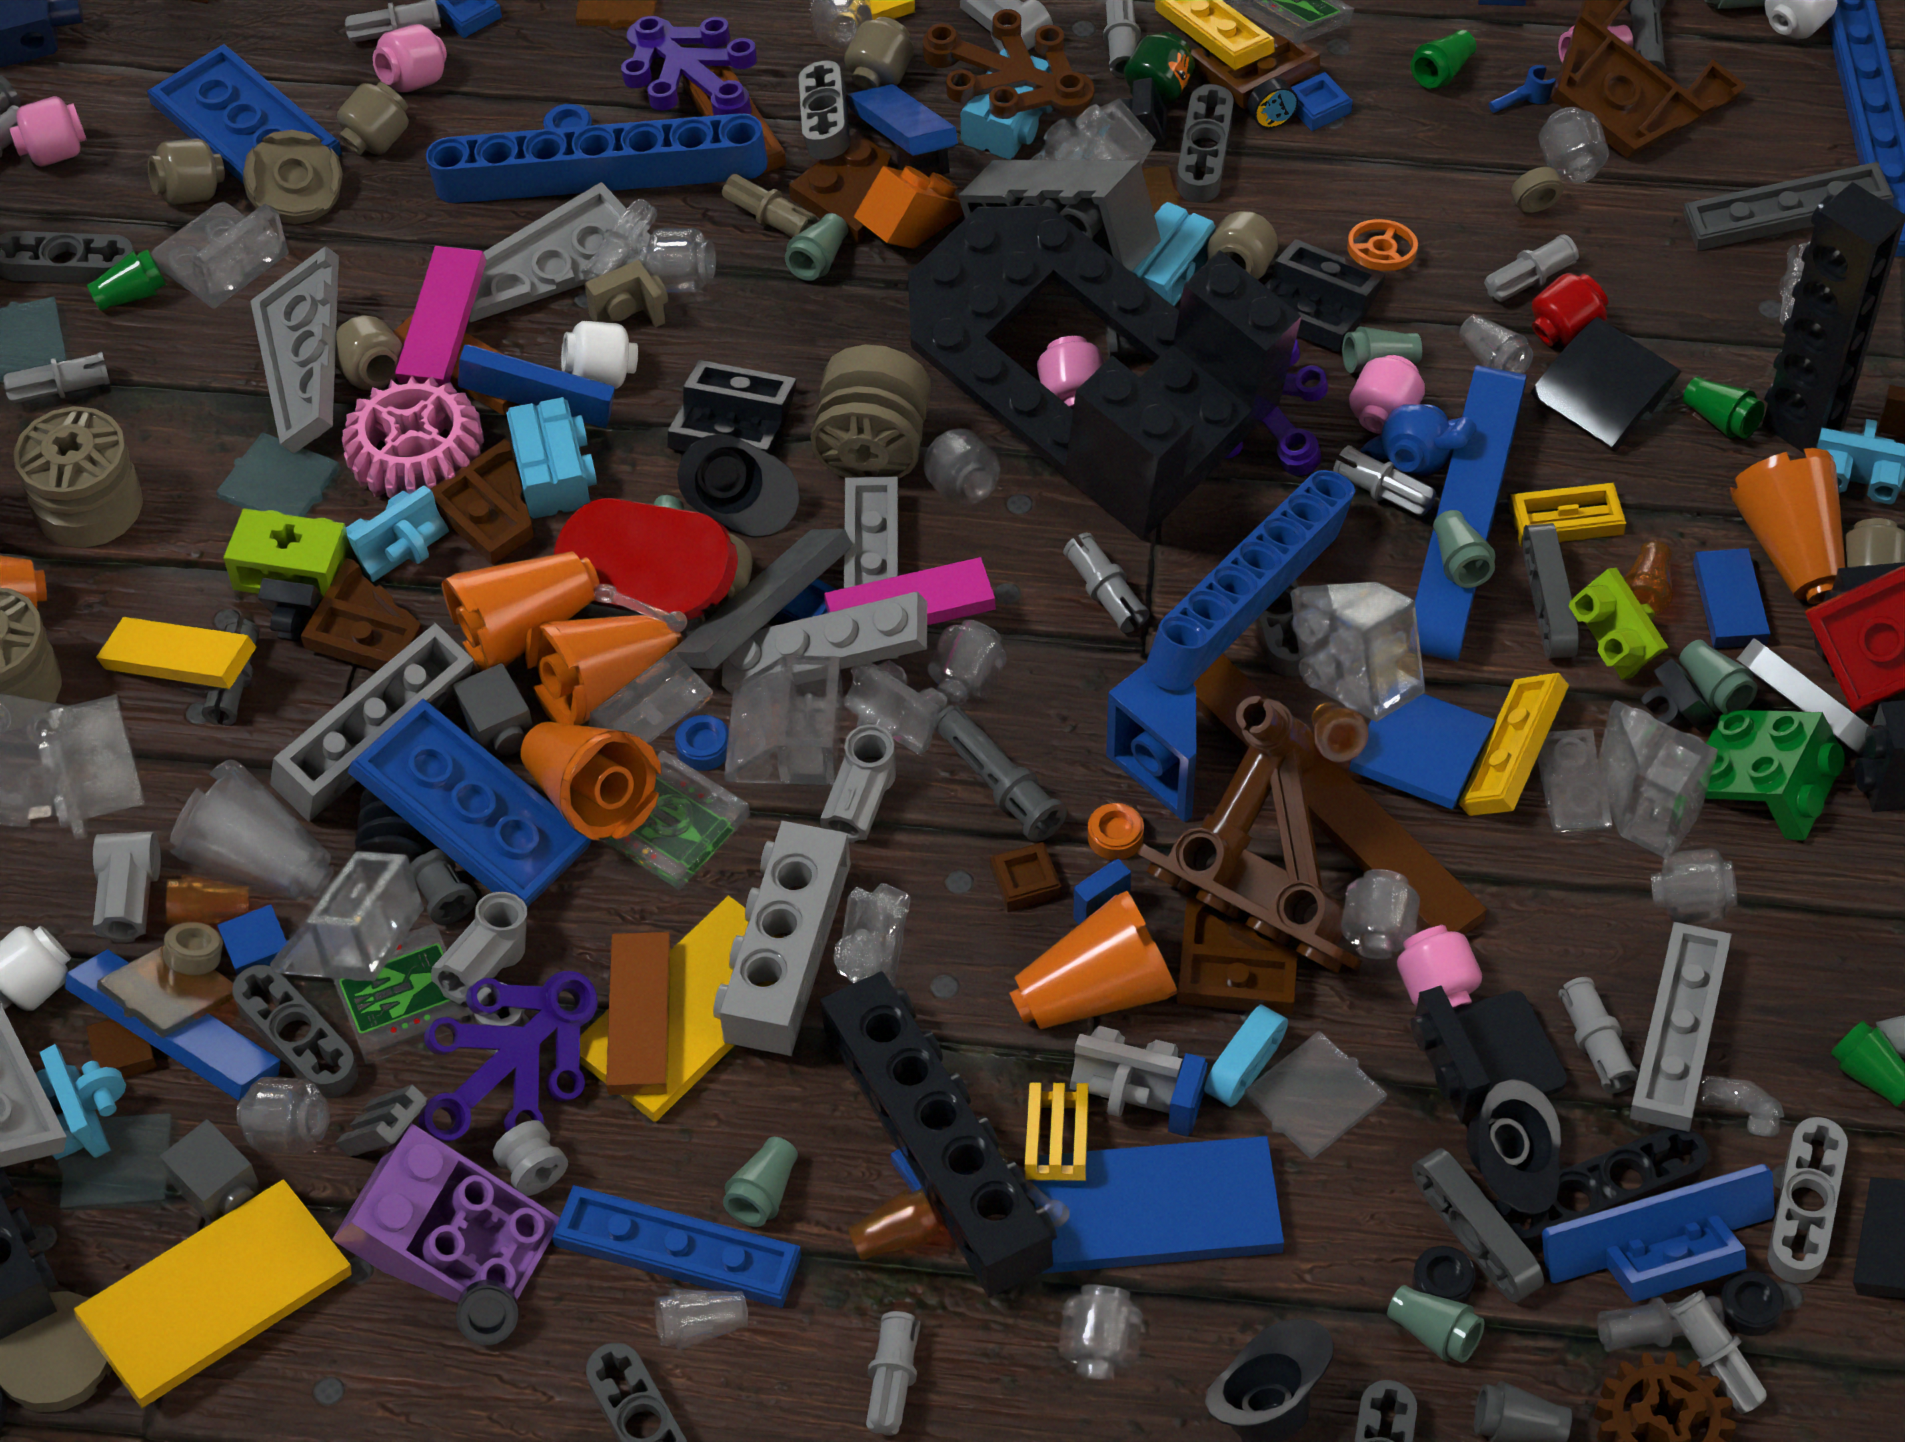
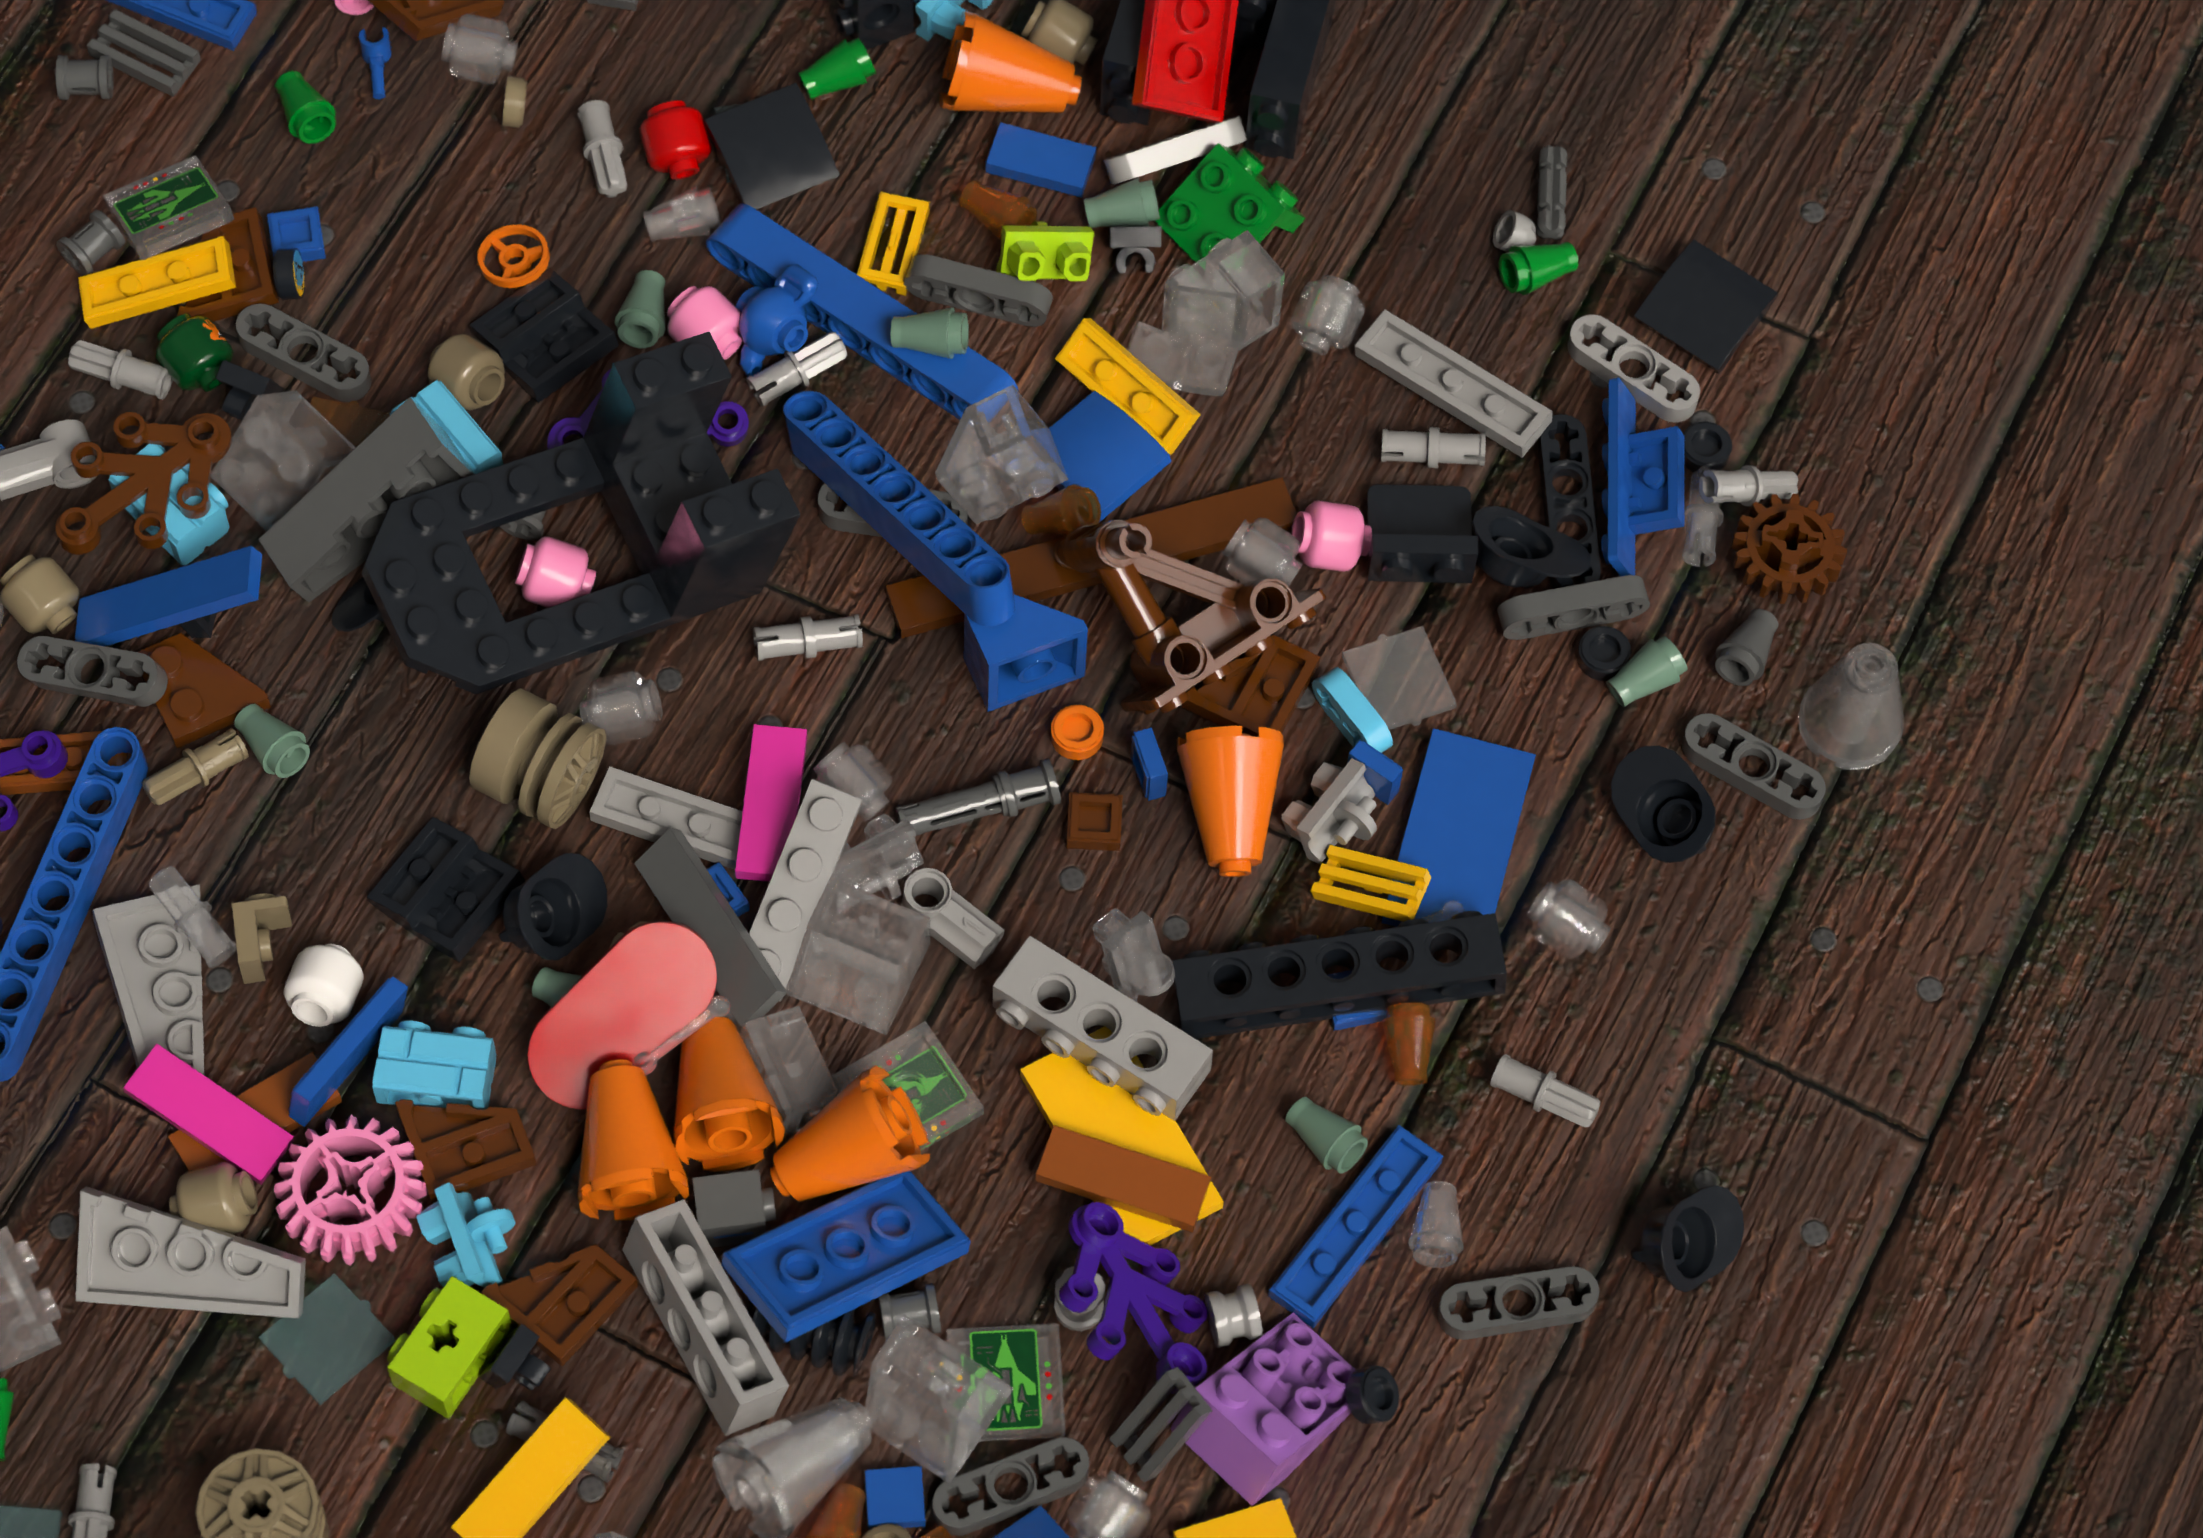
camera: 75 degrees left, 10 degrees up
(485, 947) = (1005, 1290): light grey piece -> none
(679, 258) = (232, 870): clear head -> none
(702, 742) = (836, 1039): blue tile -> none
(908, 206) = (269, 640): orange slope -> none
(1745, 1096) = (1546, 362): clear arm -> none

